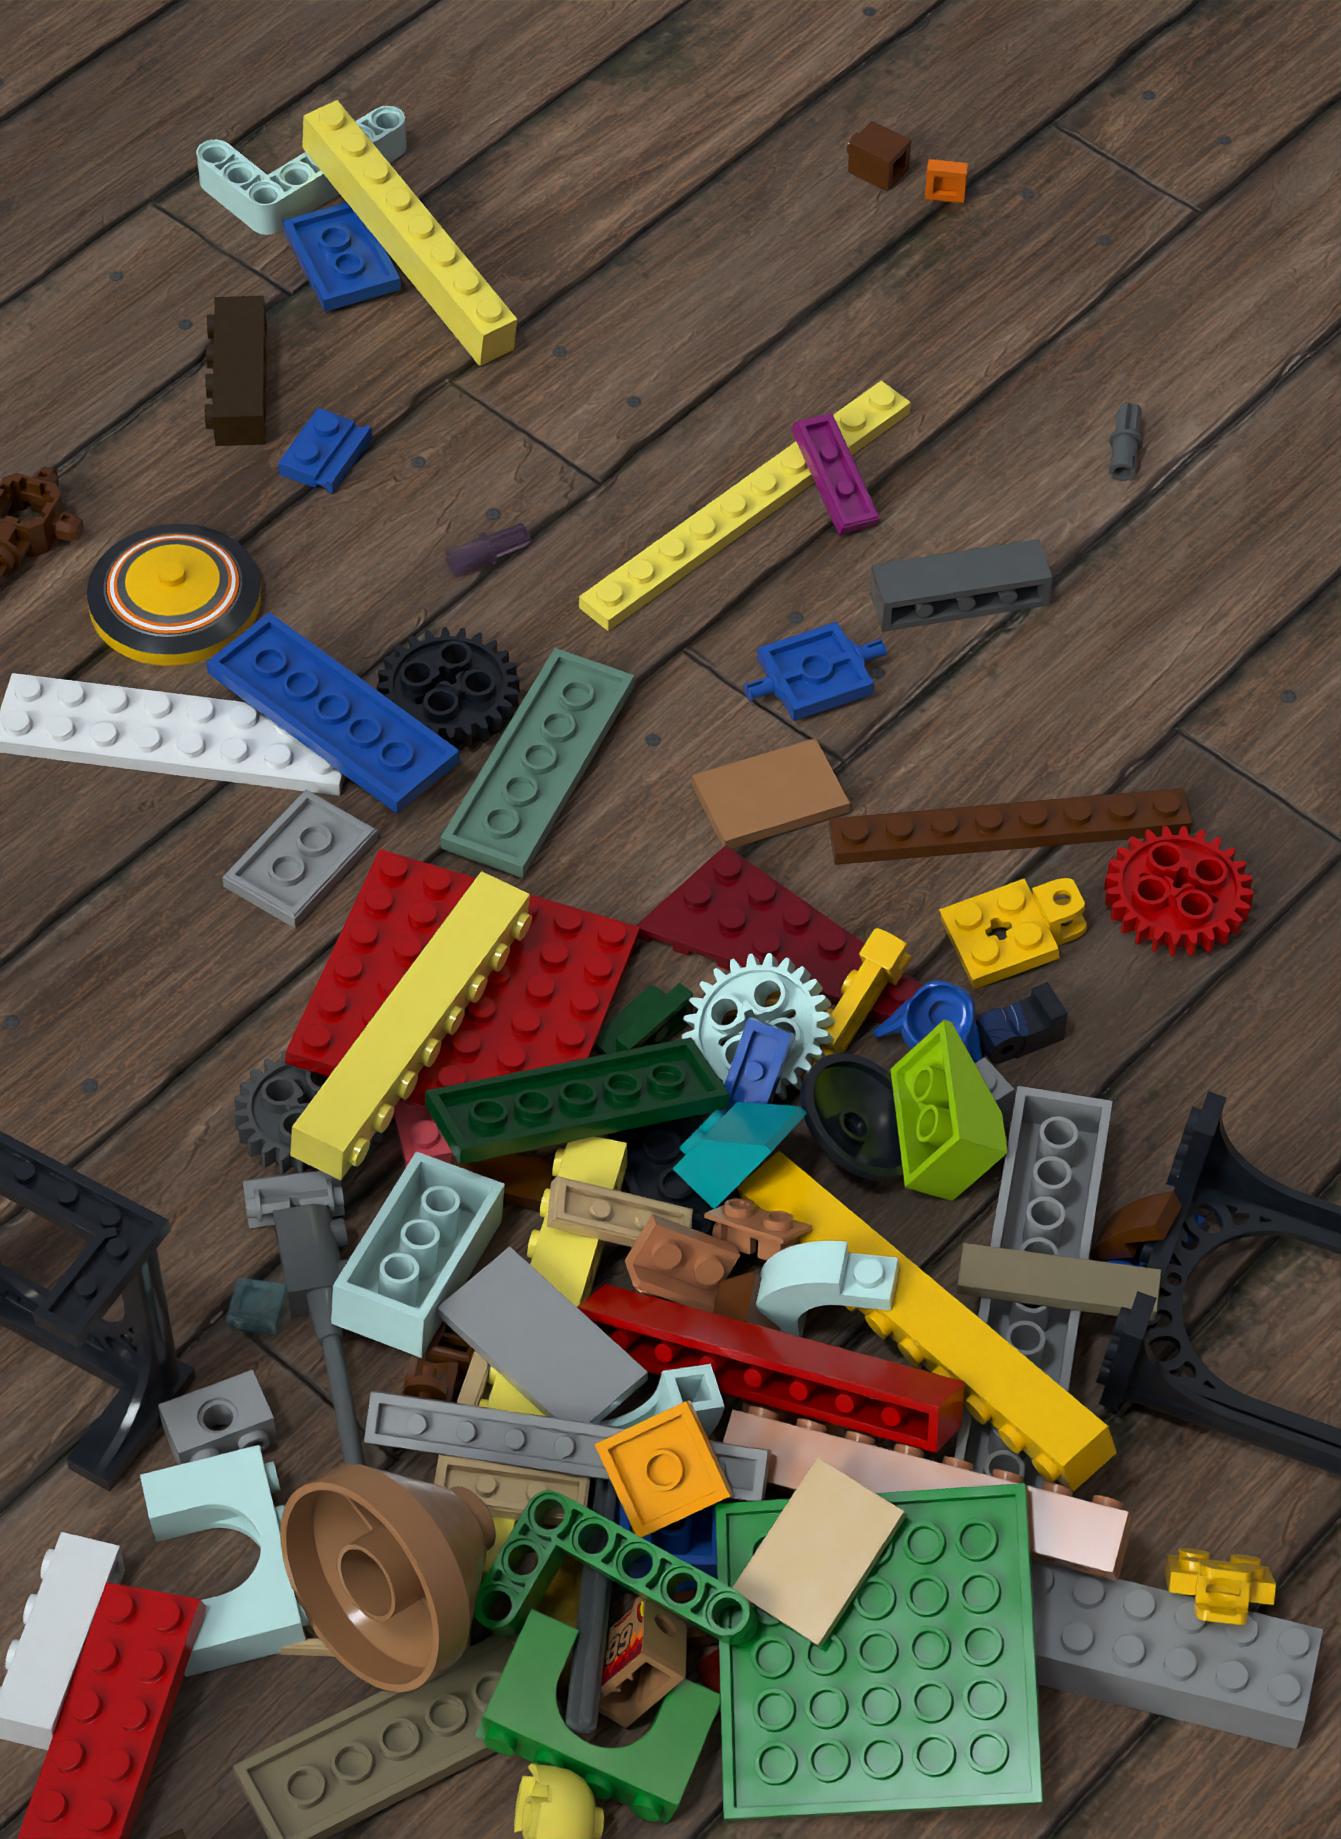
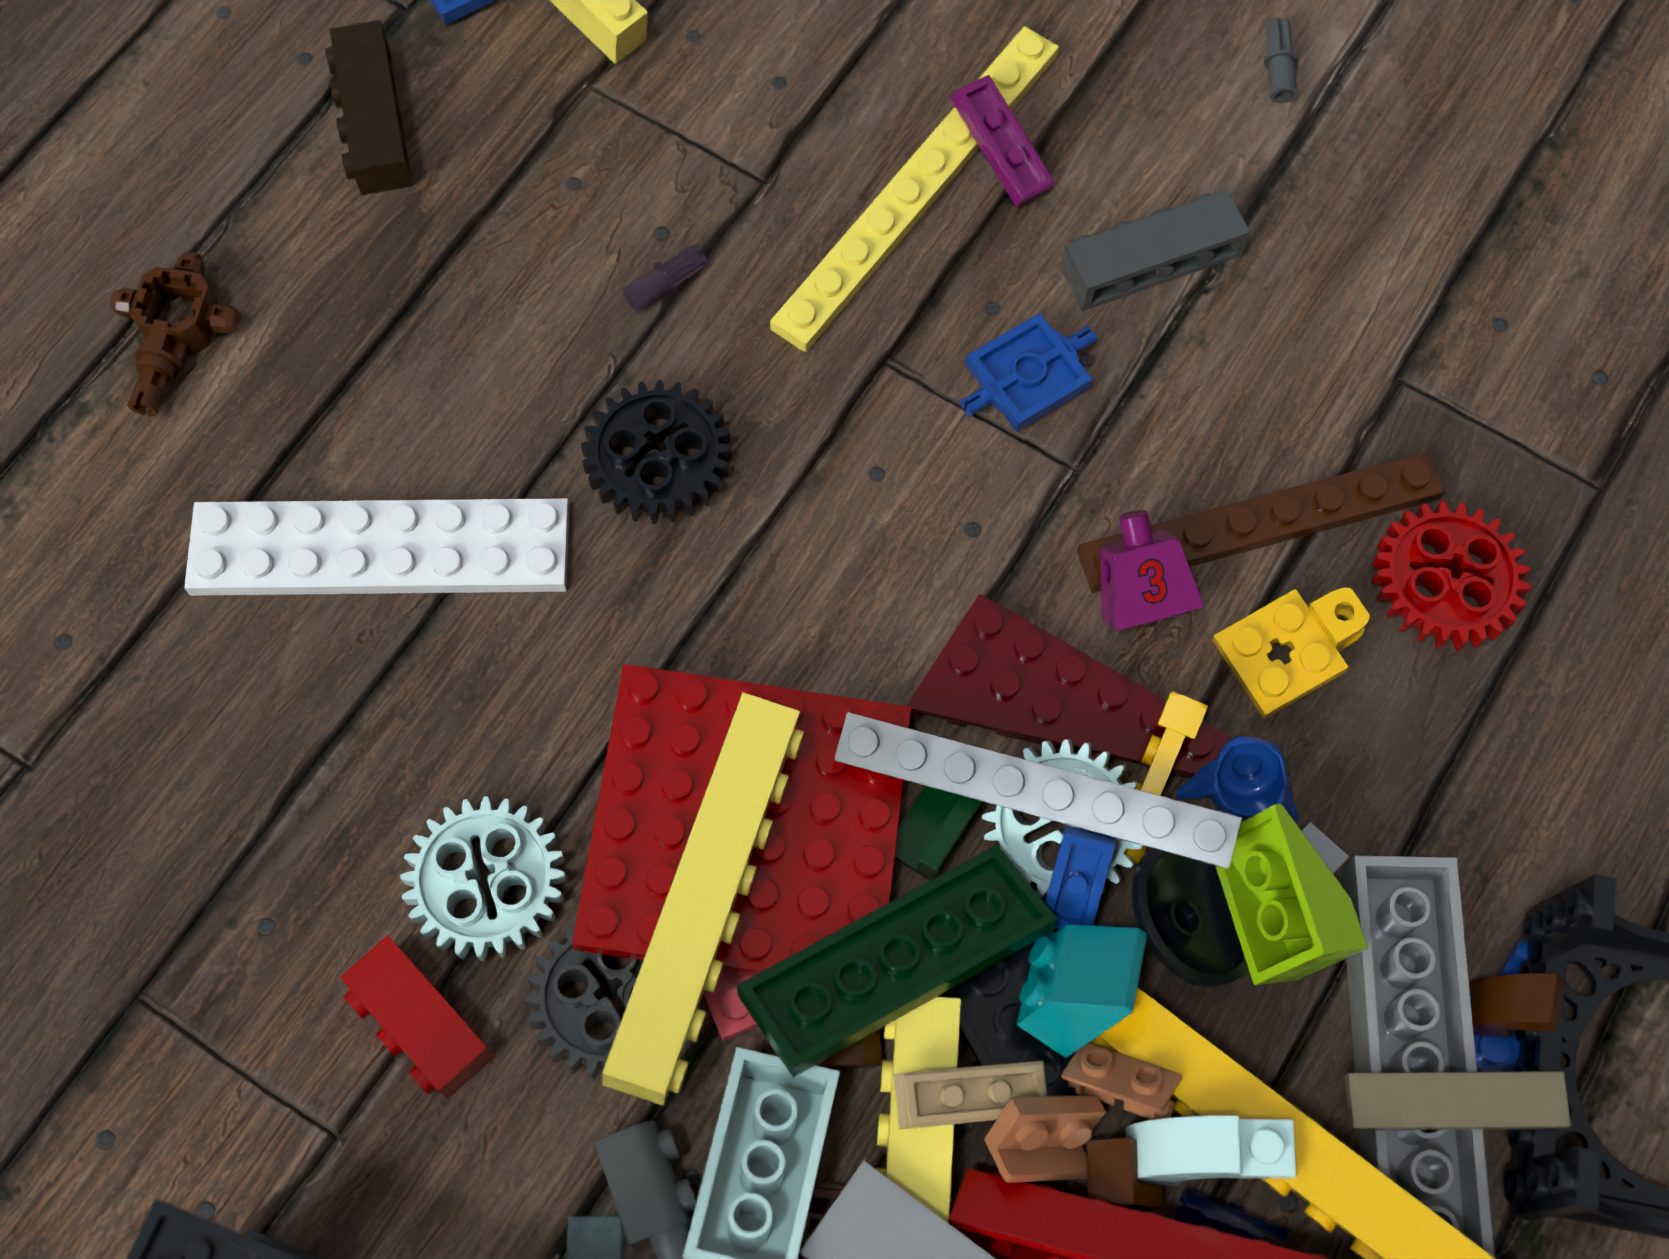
camera: 10 degrees left, 15 degrees up
(133, 1103) = (414, 1019): none -> red brick
(172, 1008) = (440, 890): none -> light aqua gear
(173, 594) = (349, 379): dish -> none
(289, 1191) = (598, 1111): light grey hinge -> none
(300, 858) = (539, 677): light grey tile -> none
(324, 450) = (475, 186): blue plate -> none
(333, 712) = (544, 506): blue plate -> none
(537, 762) = (766, 526): sand green plate -> none
(734, 989) = (1039, 790): none -> light grey plate
(770, 794) = (1011, 522): medium nougat tile -> none
(882, 843) = (1144, 575): none -> magenta torso
(1023, 1026) = (1330, 761): black leg -> none

